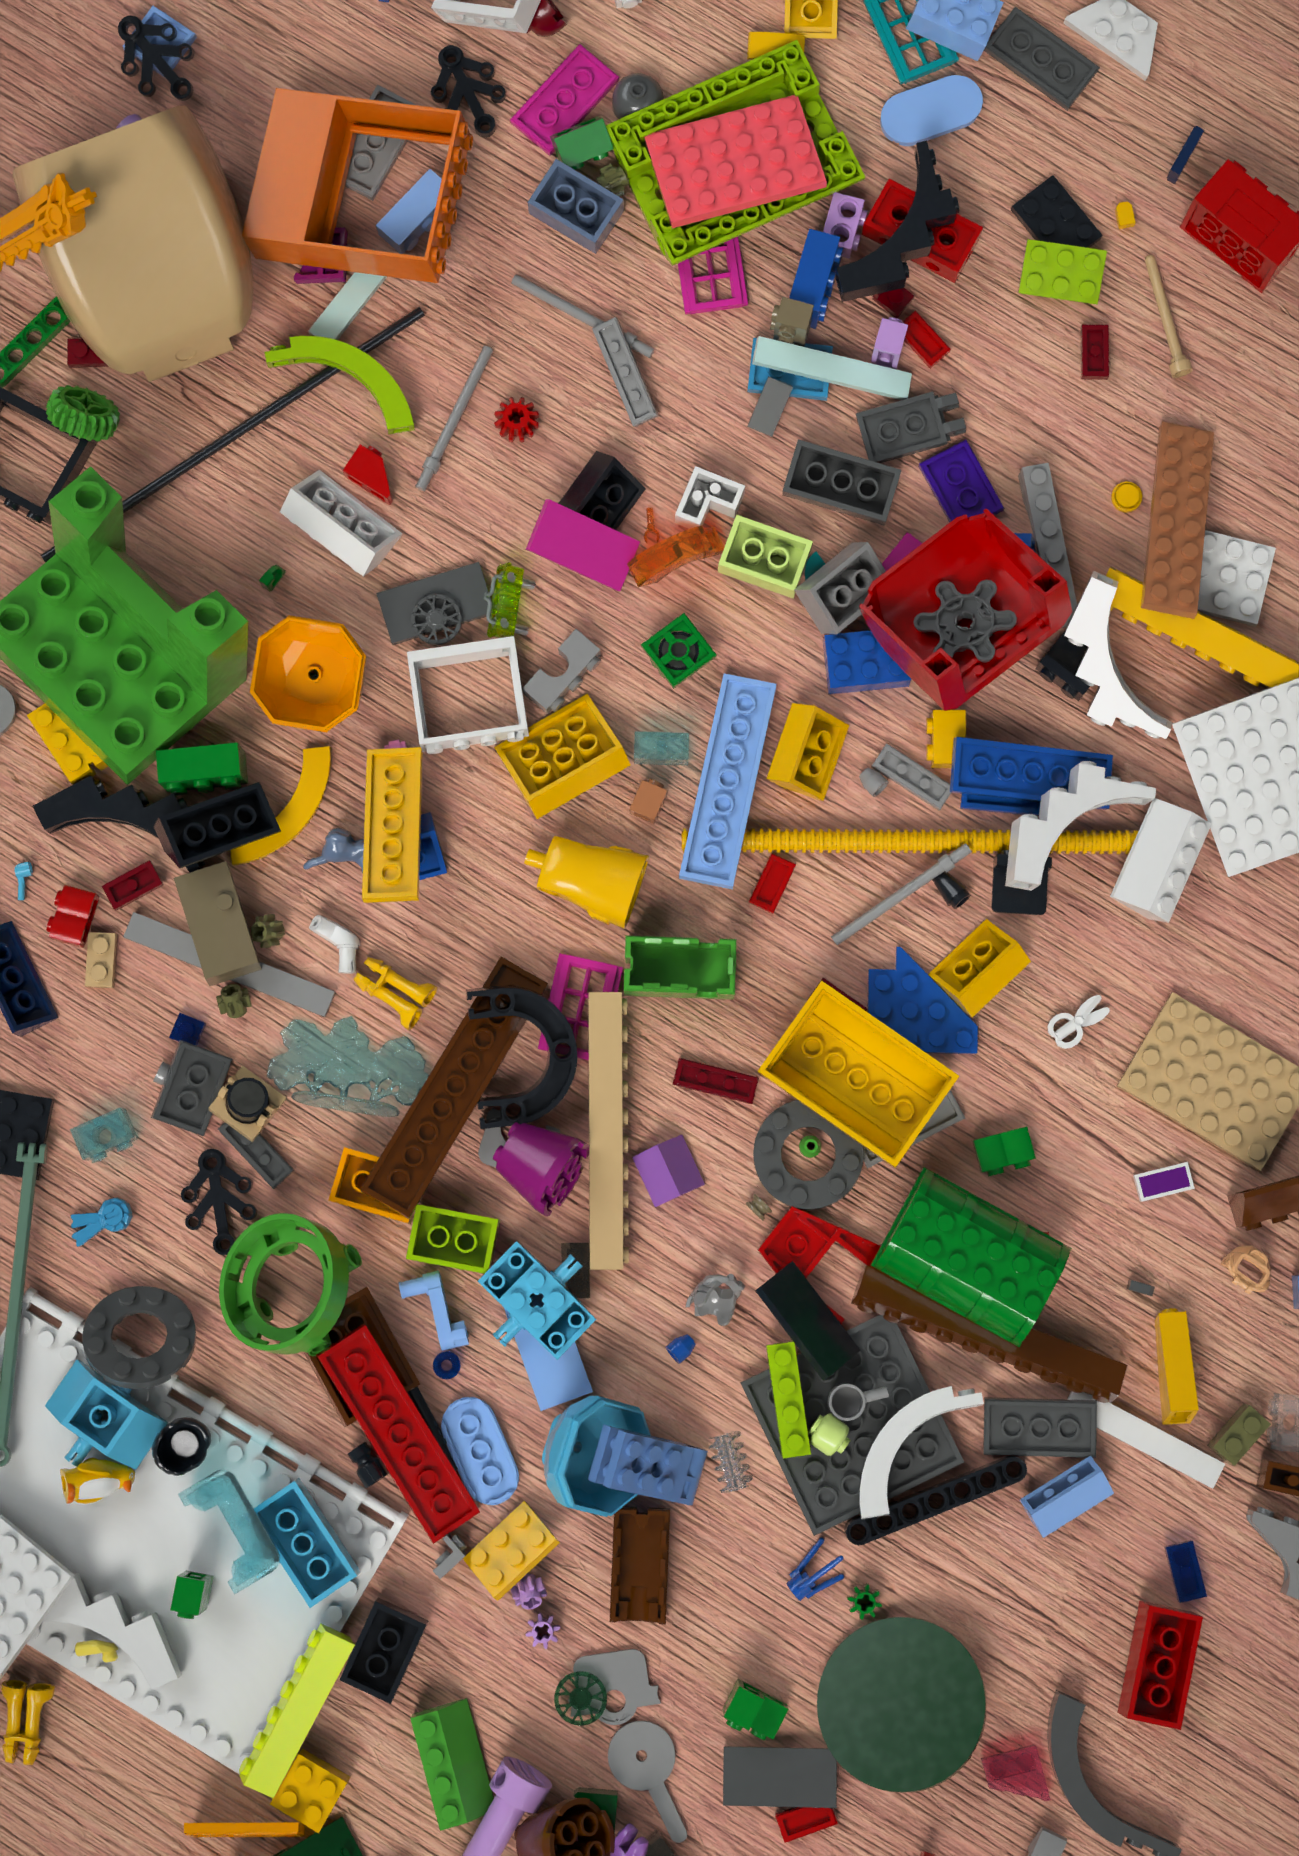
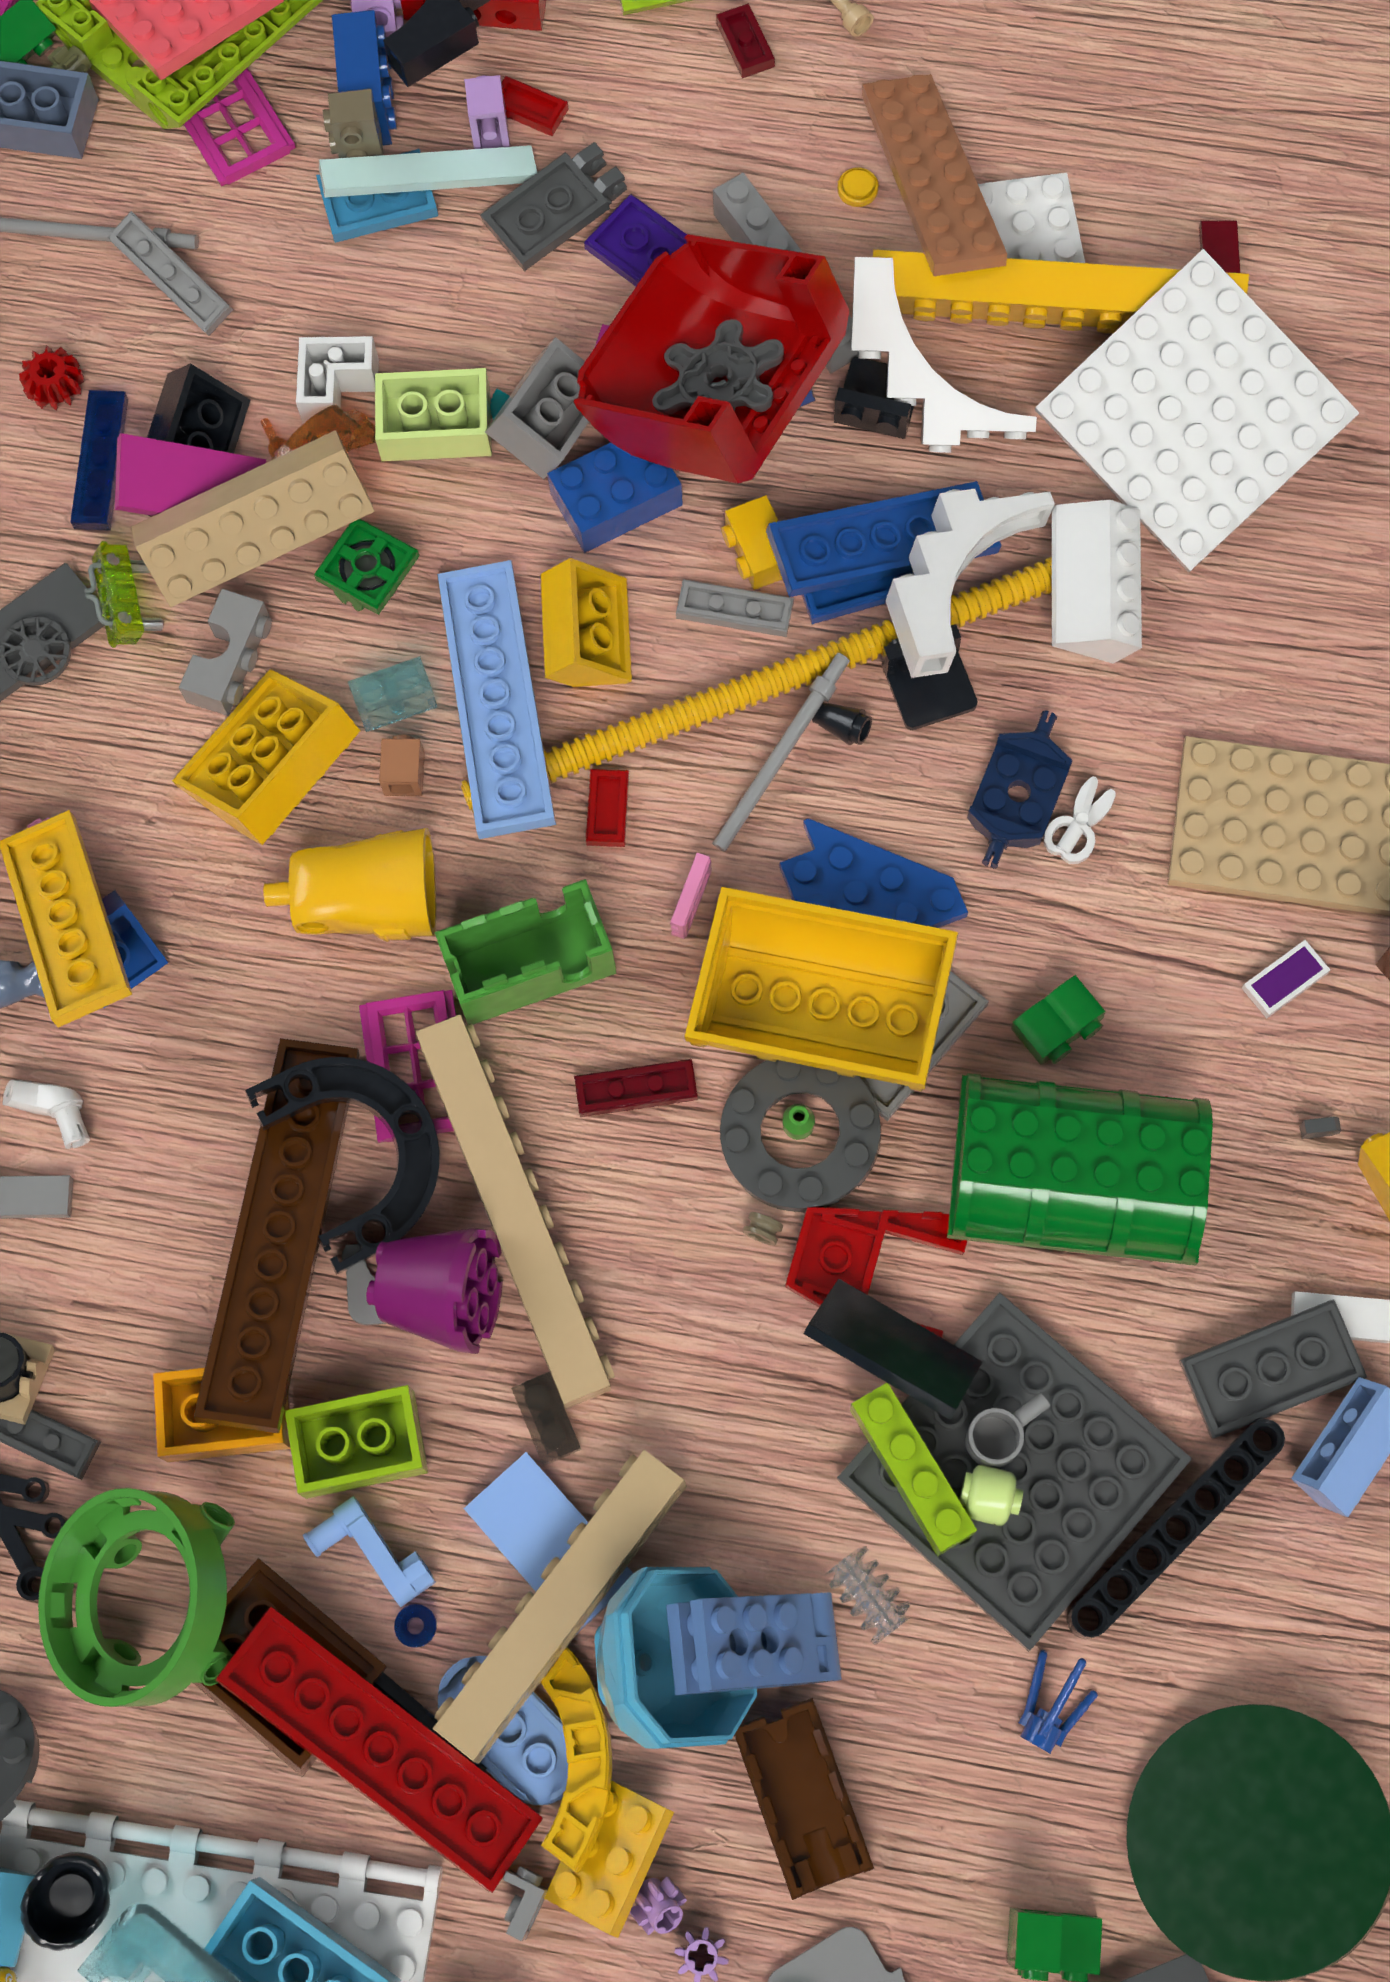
camera: 20 degrees left, 10 degrees down
(345, 1060) = (113, 1264): clear light blue plant -> none
(369, 1468) = (360, 1821): black piece -> none
(408, 1011) = (182, 1161): yellow piece -> none
(460, 654) = (85, 680): white window -> none
(513, 1283) = (465, 1465): medium azure slope -> none
(523, 1478) = (588, 1761): none -> yellow tile
(527, 494) = (97, 461): none -> clear blue plate
(539, 1392) = (559, 1606): none -> tan brick
(614, 589) = (252, 519): none -> tan brick
(668, 1170) = (619, 1231): medium lavender slope -> none
(681, 1348) = (735, 1465): blue hose -> none
(714, 1300) = (753, 1381): light grey helmet -> none
(770, 406) = (368, 243): dark grey tile -> none
(802, 968) = (691, 896): none -> bright pink tile
(841, 482) = (494, 294): dark grey brick -> none
(868, 1607) = (1135, 1726): green gear -> none
(873, 781) = (686, 631): light grey hose -> none
(877, 1466) = (1076, 1508): white arch -> none
(894, 301) = (468, 66): dark red bracket -> none
(980, 967) = (925, 802): yellow slope -> none
(1039, 1352) = (1226, 1268): reddish brown brick -> none
(1065, 971) = (1027, 762): none -> dark blue plate

